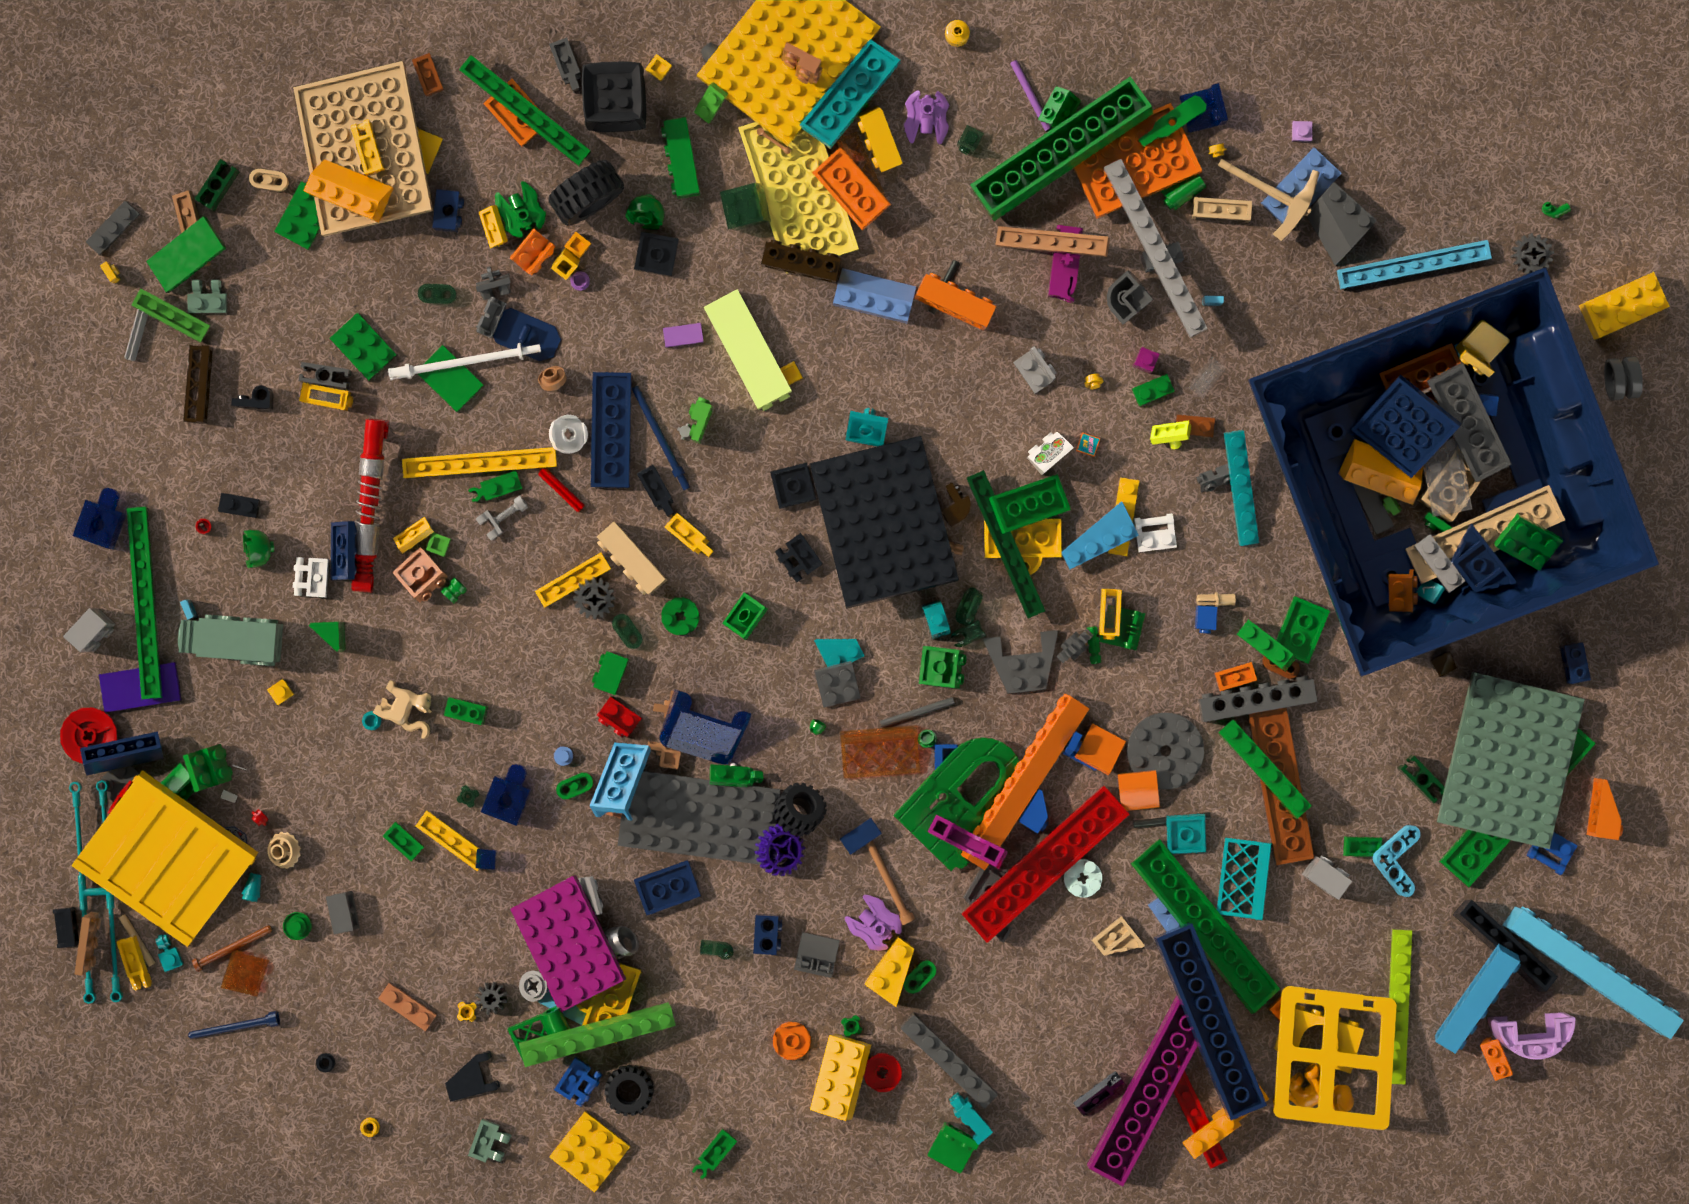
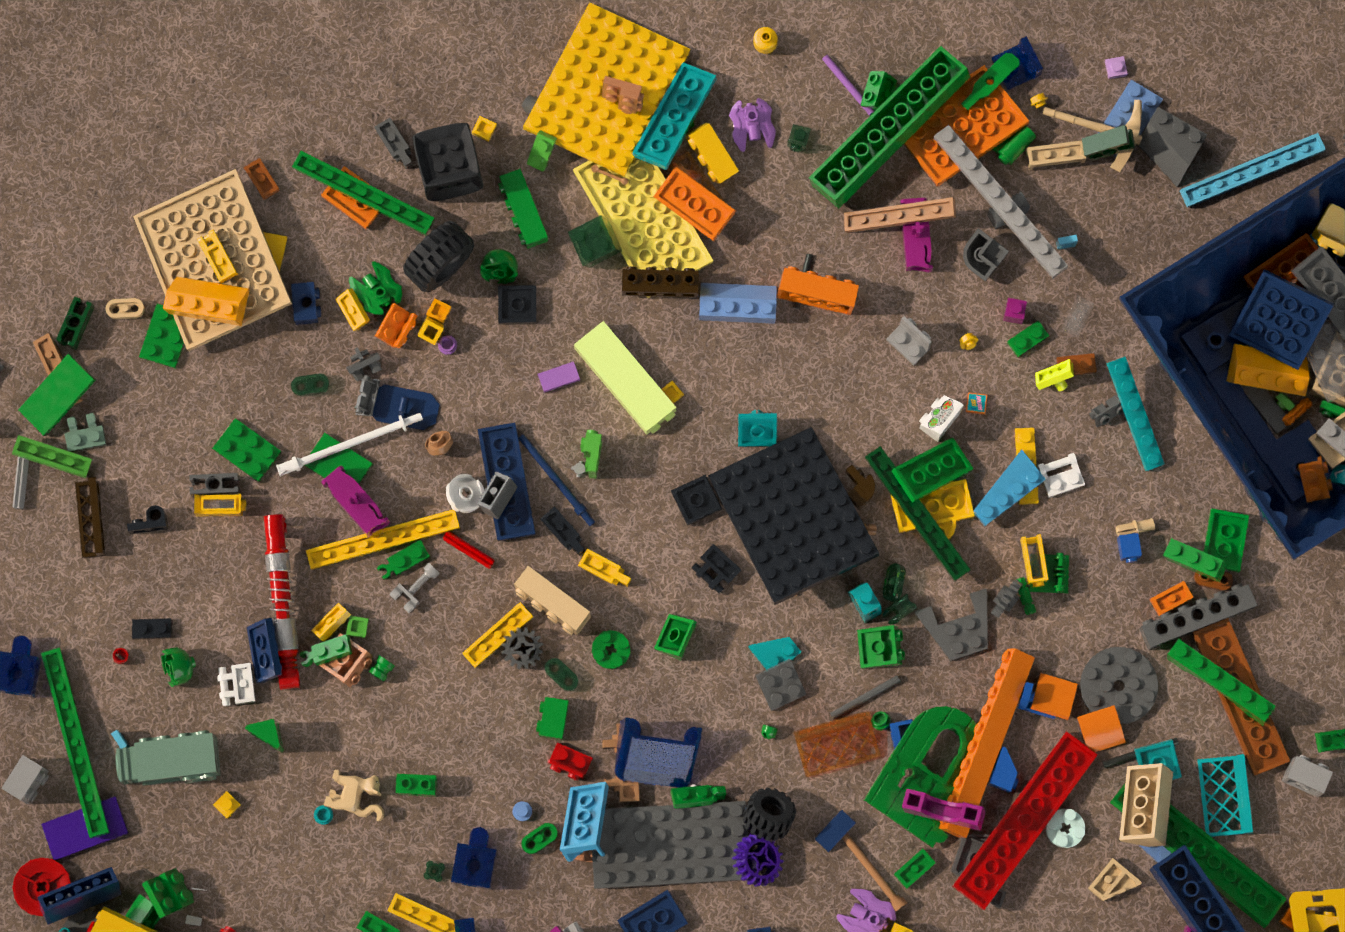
camera: 10 degrees left, 10 degrees down
(404, 563) = (327, 651): none -> plate
(458, 421) = (355, 501): none -> magenta piece
(598, 444) = (497, 495): none -> dark grey brick
(929, 887) = (914, 868): none -> green plate
(1164, 875) = (1146, 805): none -> tan slope
(1276, 209) = (1108, 143): none -> piece
(1401, 517) = (1297, 411): none -> orange axle

